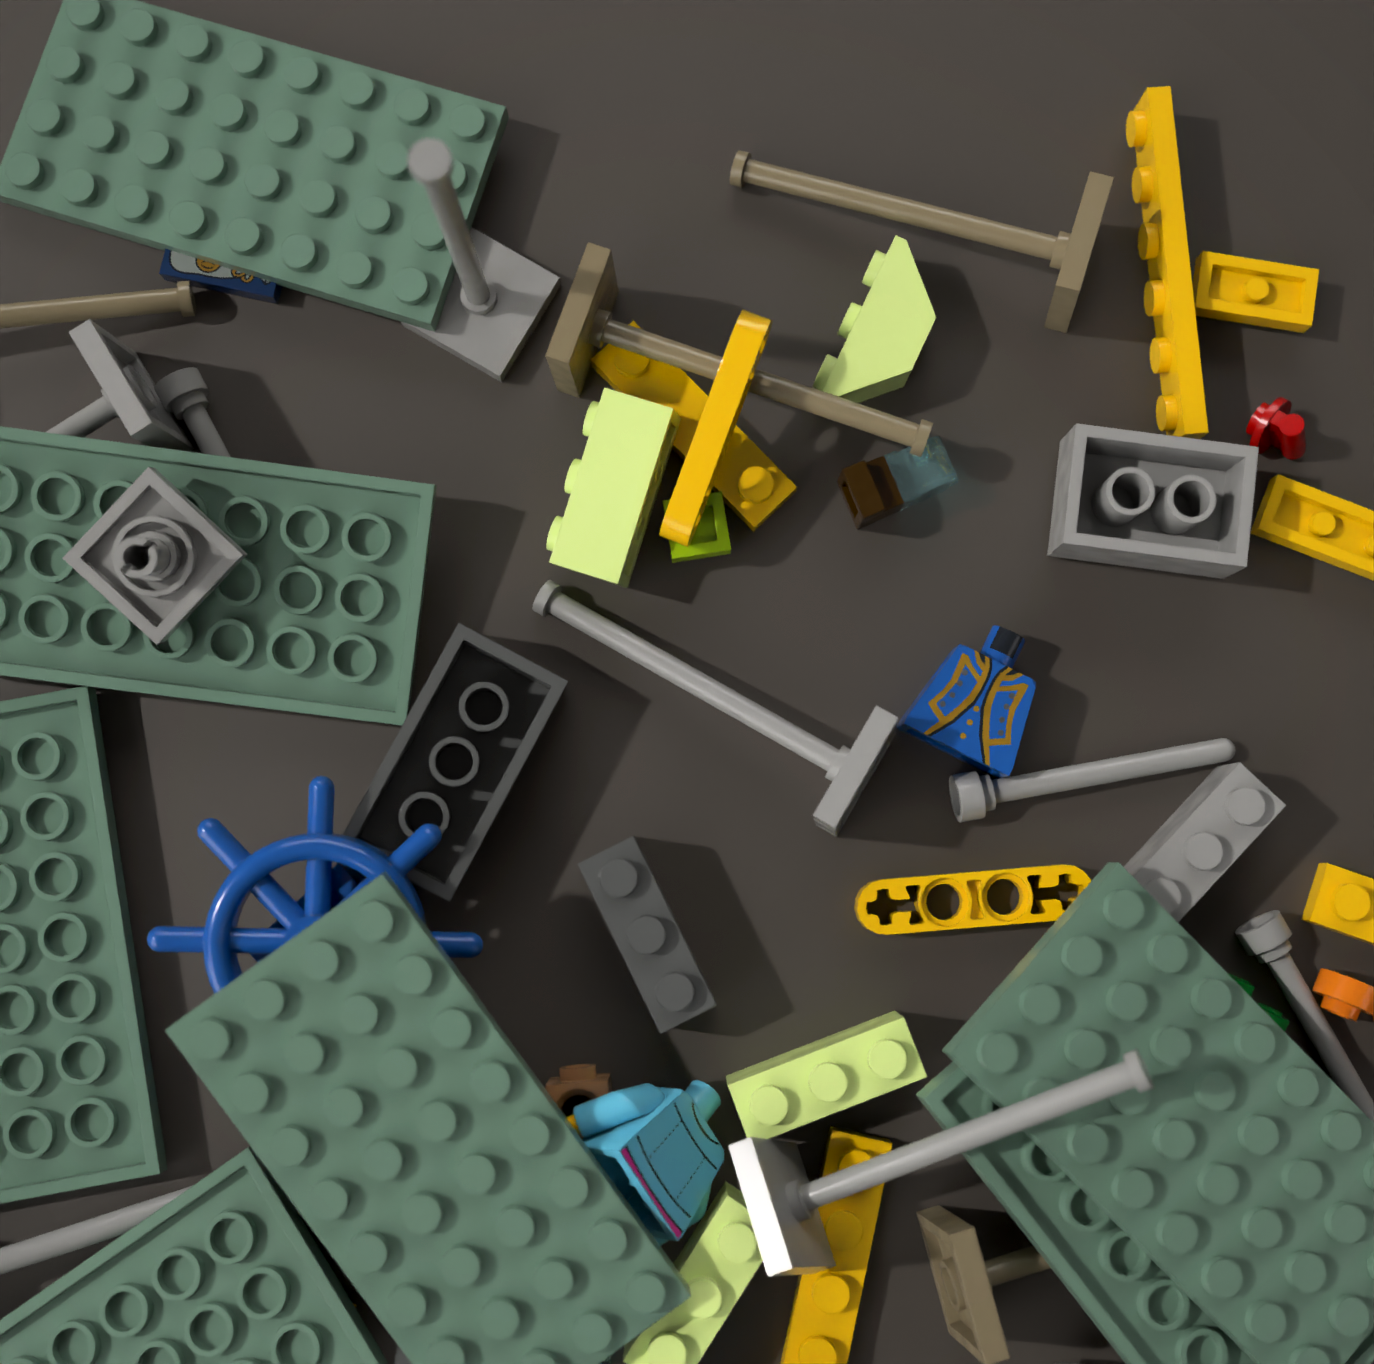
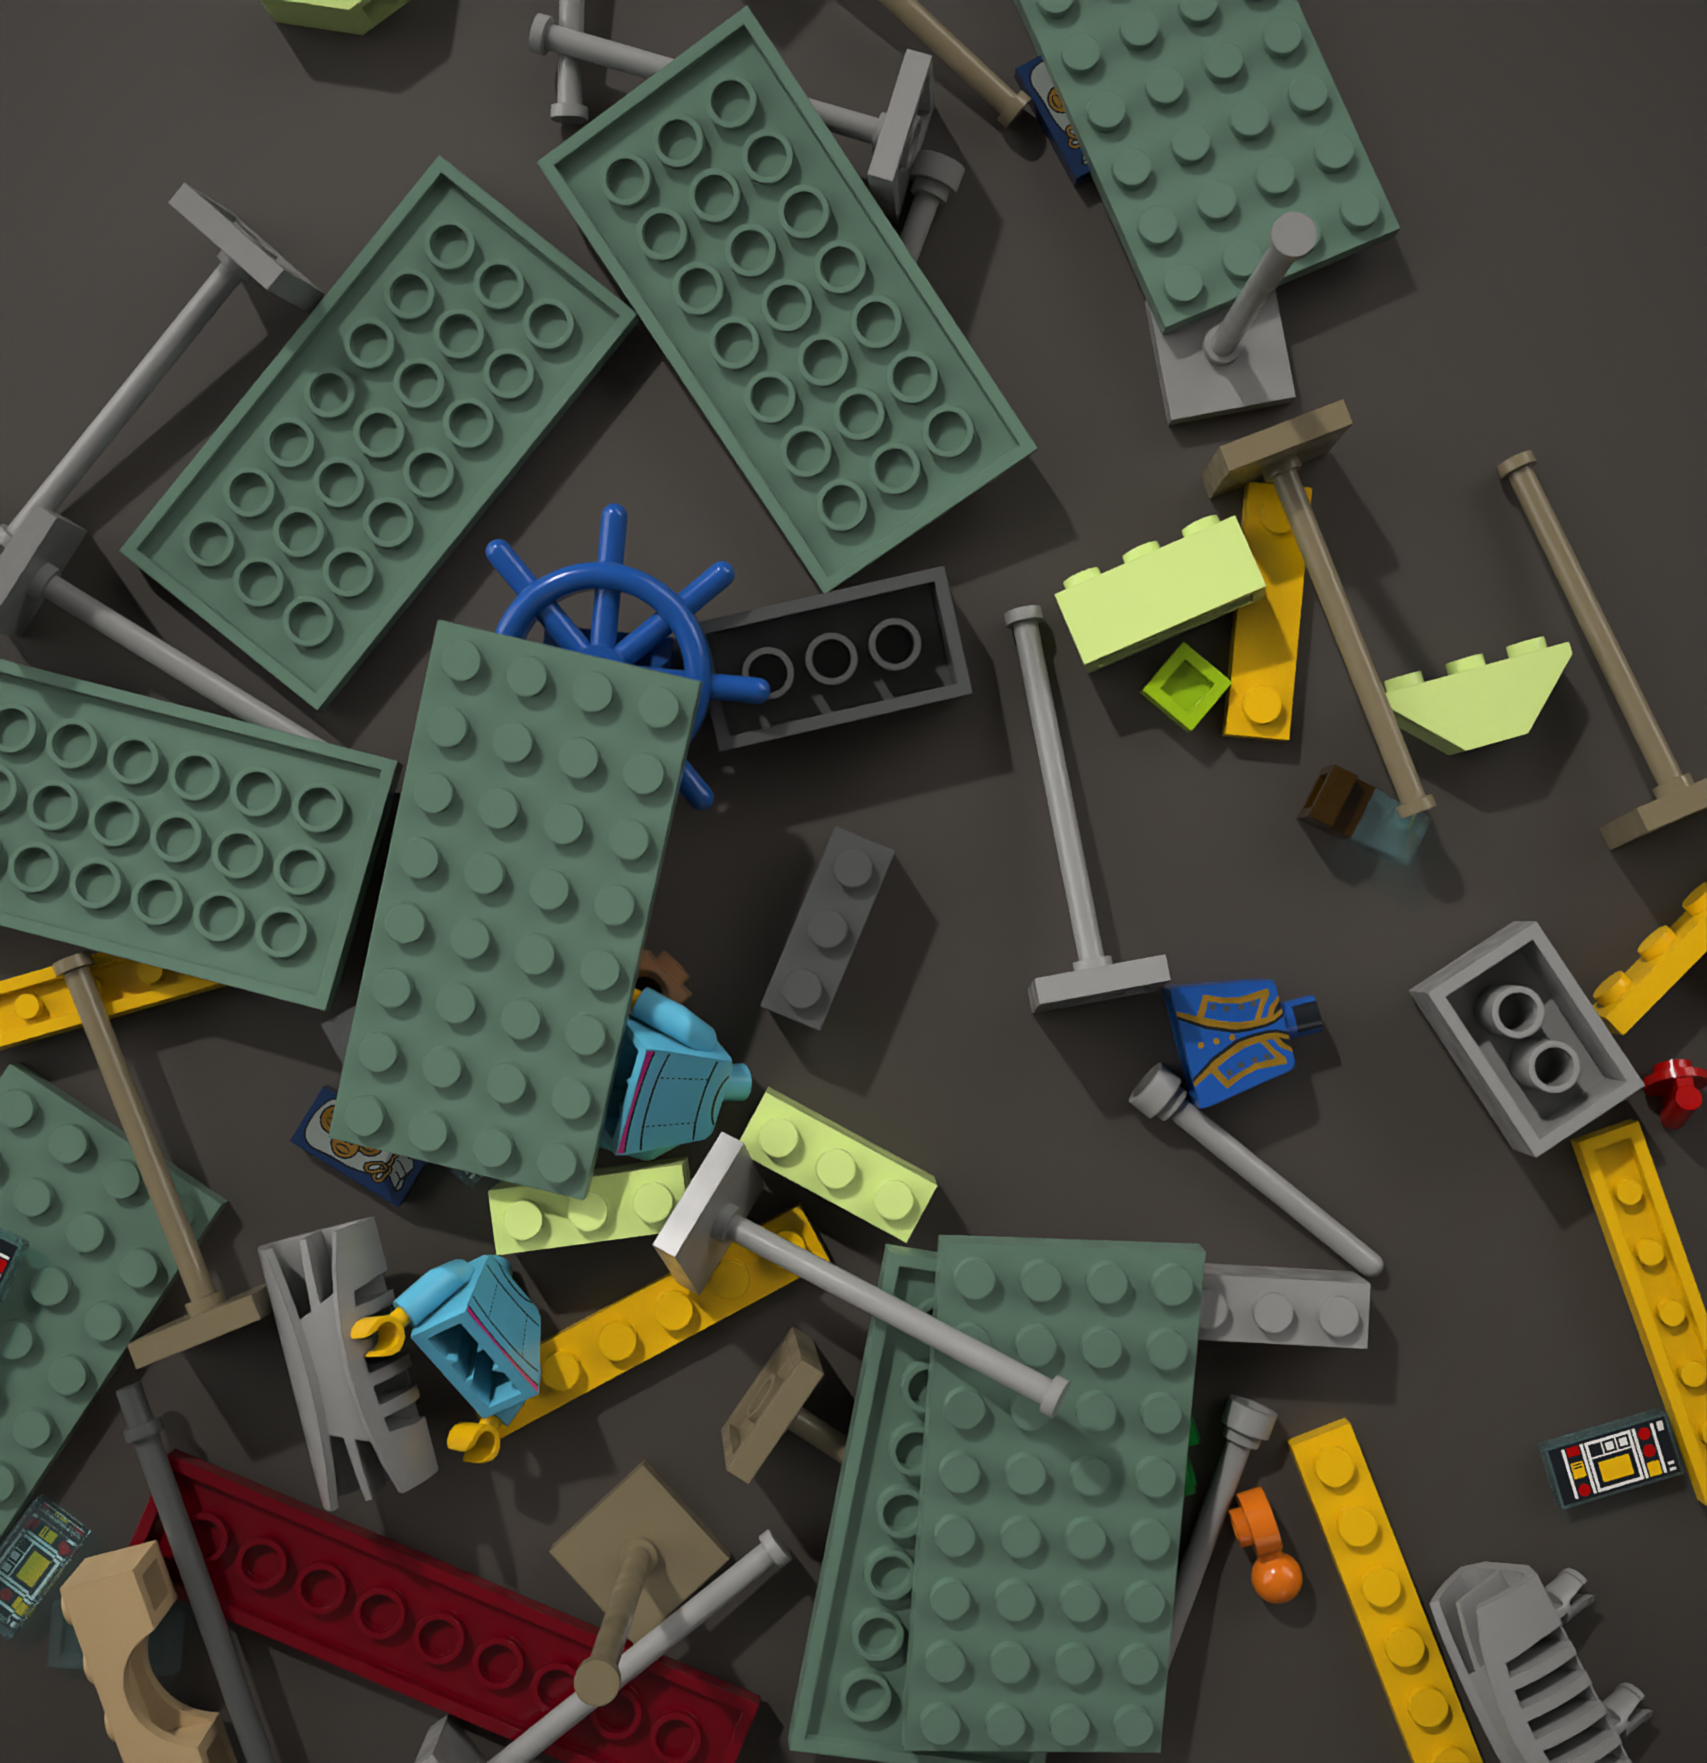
camera: 50 degrees right, 5 degrees up
(155, 555) = (788, 278): light grey plate -> none
(715, 427) = (1280, 633): yellow beam -> none
(973, 902) = (1077, 1163): yellow beam -> none

